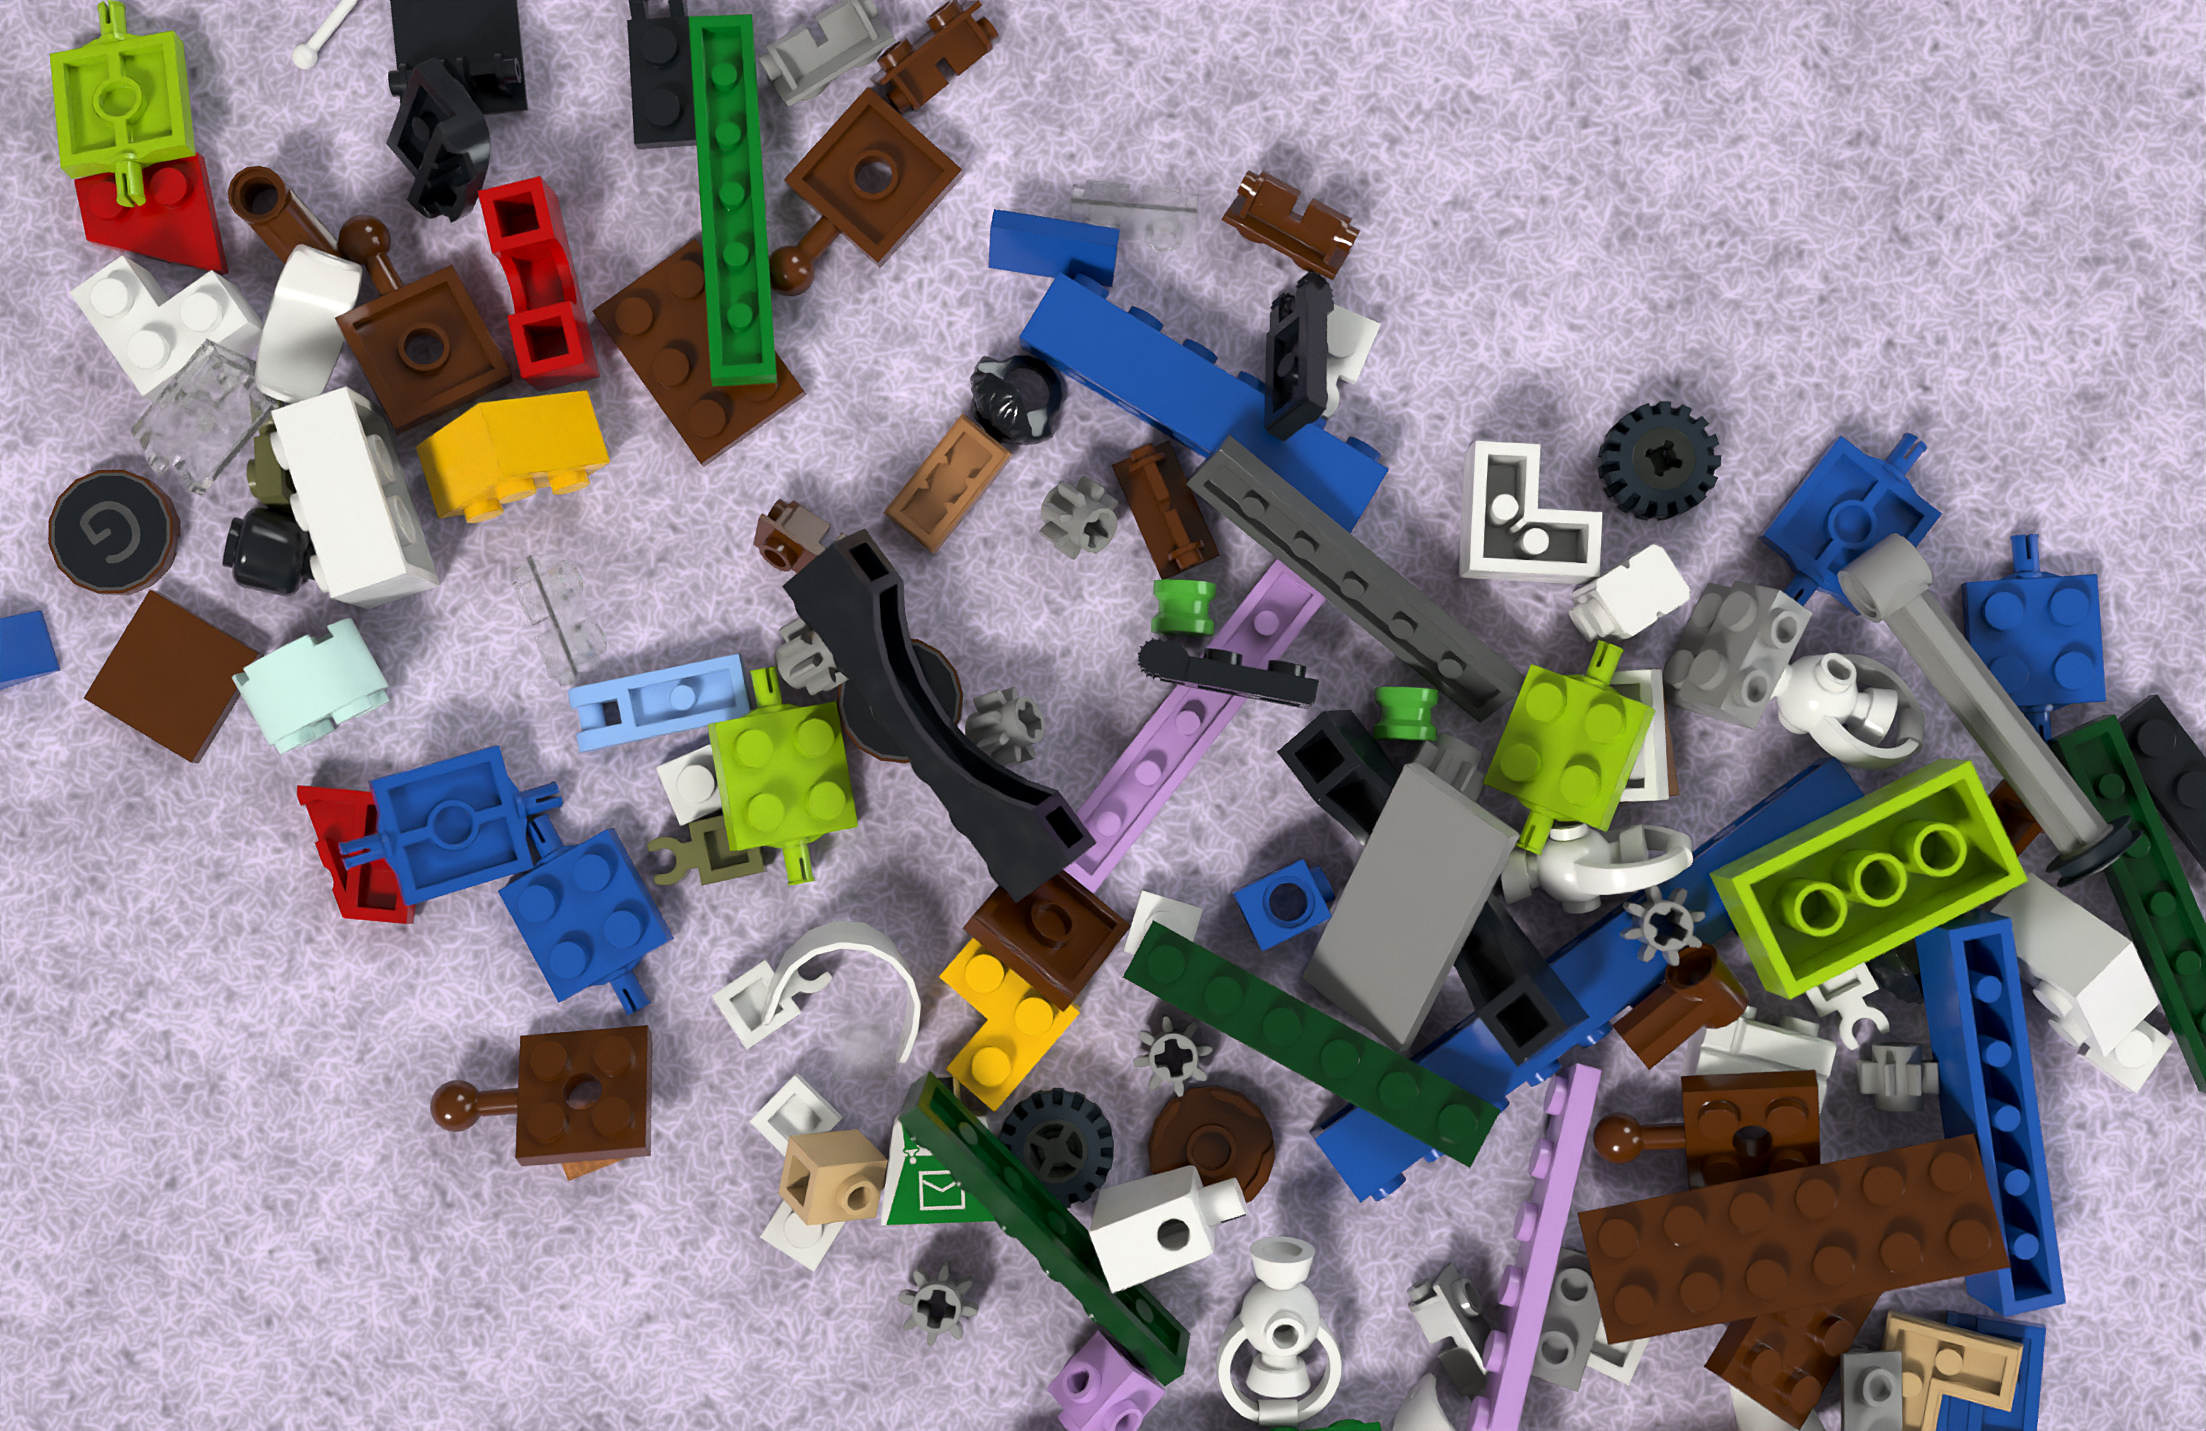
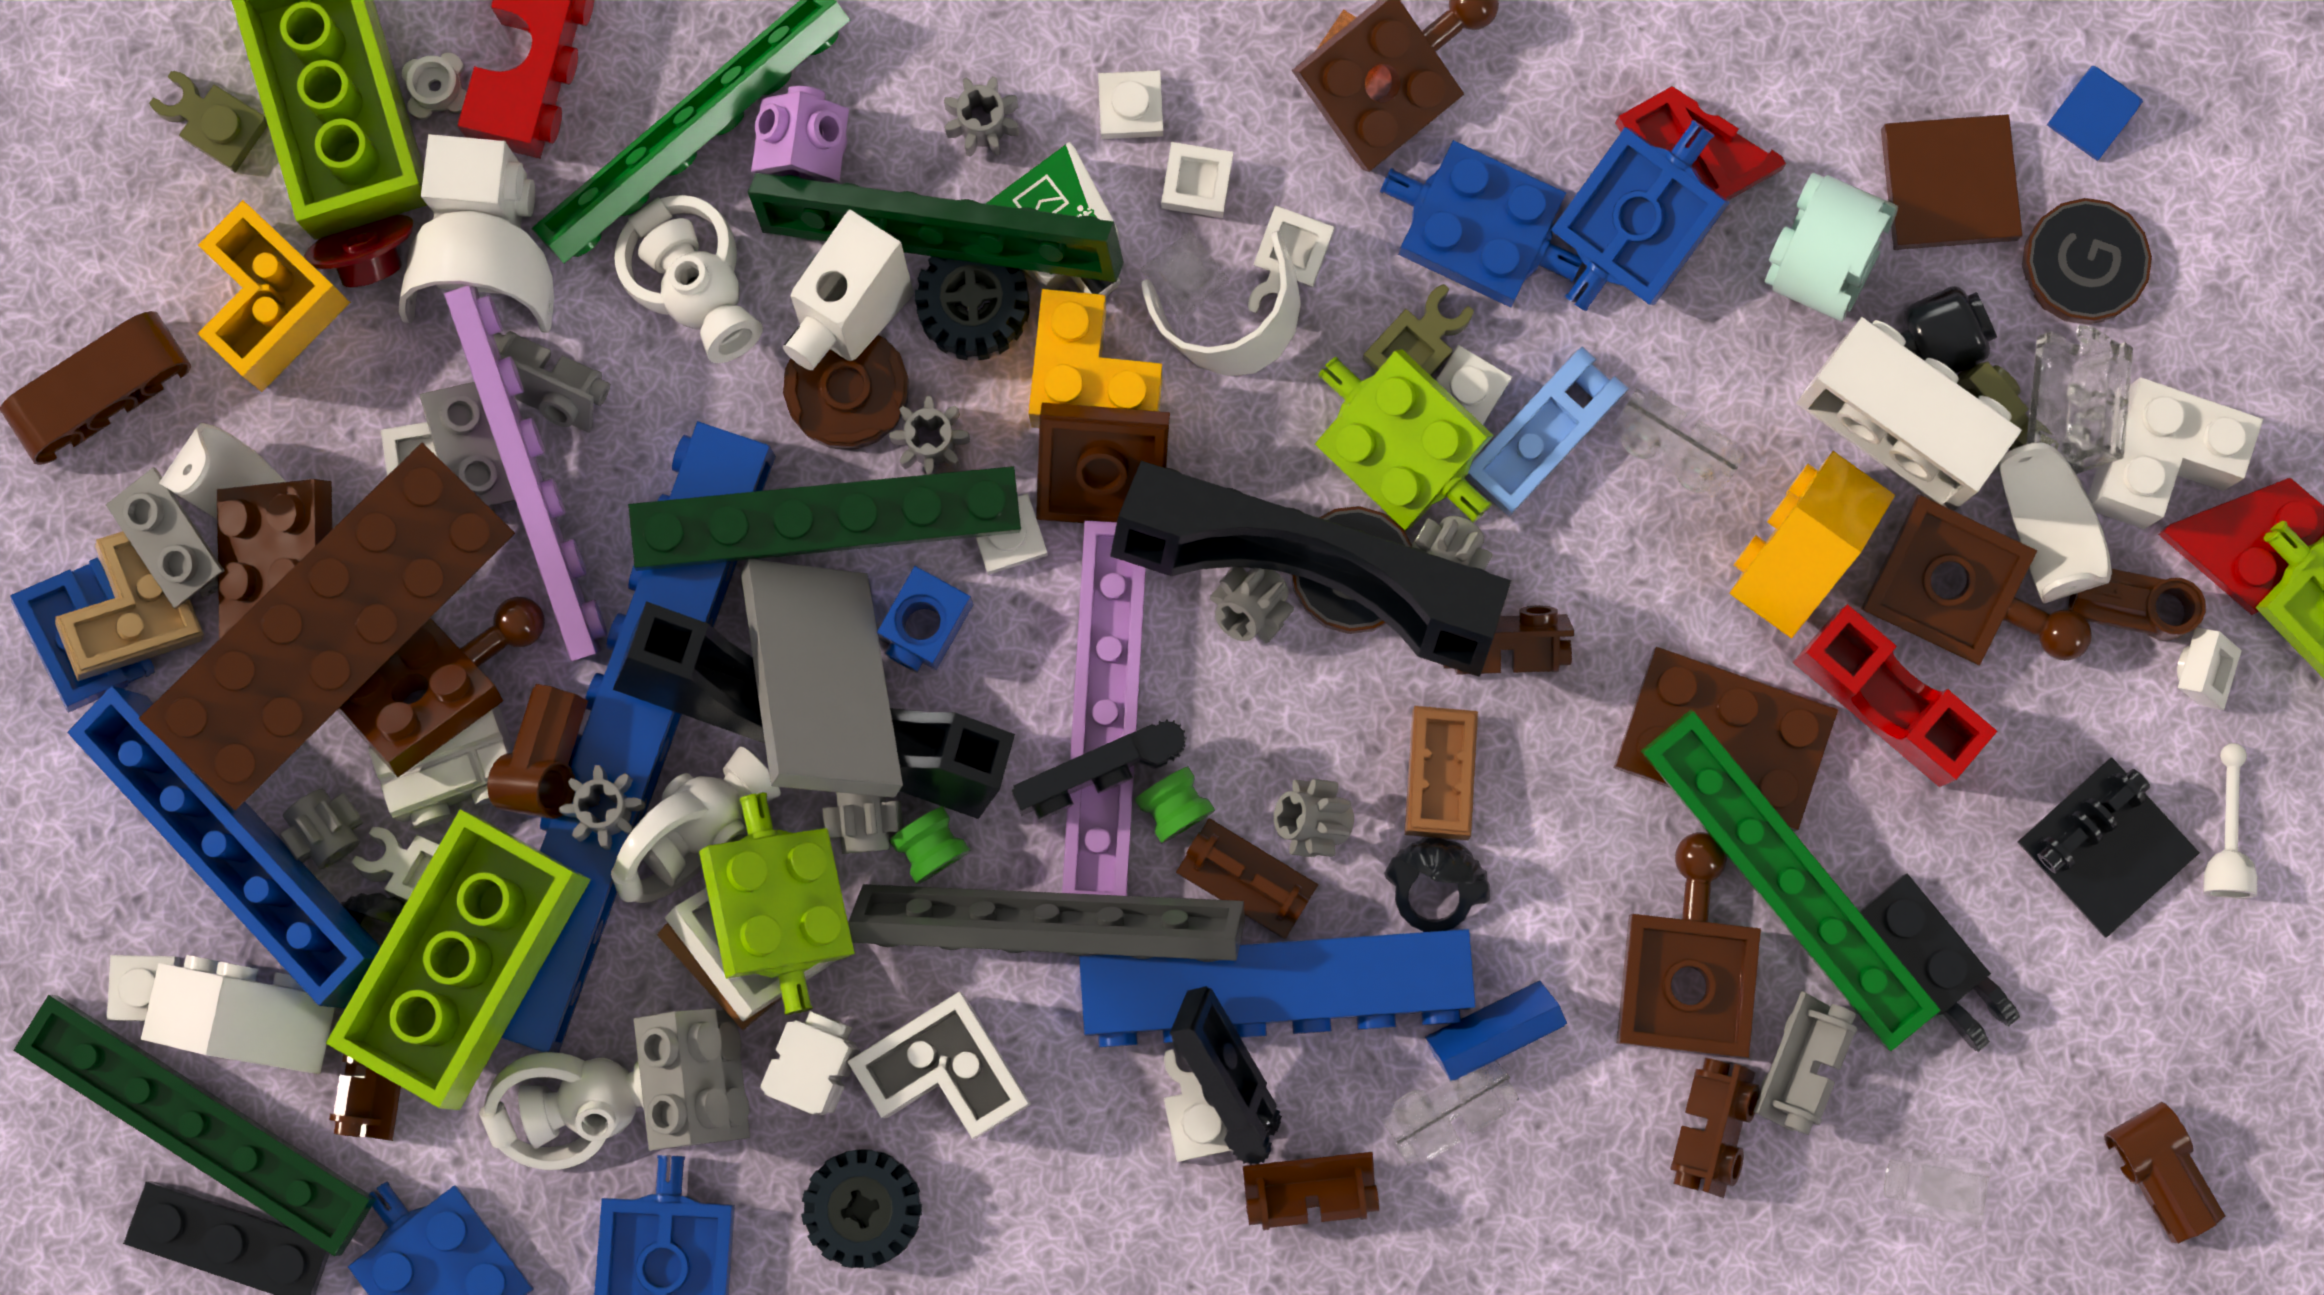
camera: 145 degrees right, 5 degrees down
(271, 135) = (2208, 668): none -> white plate
(441, 143) = (2056, 754): black slope -> none
(832, 1176) = (1135, 153): tan brick -> none
(1893, 586) = (591, 1227): light grey piece -> none

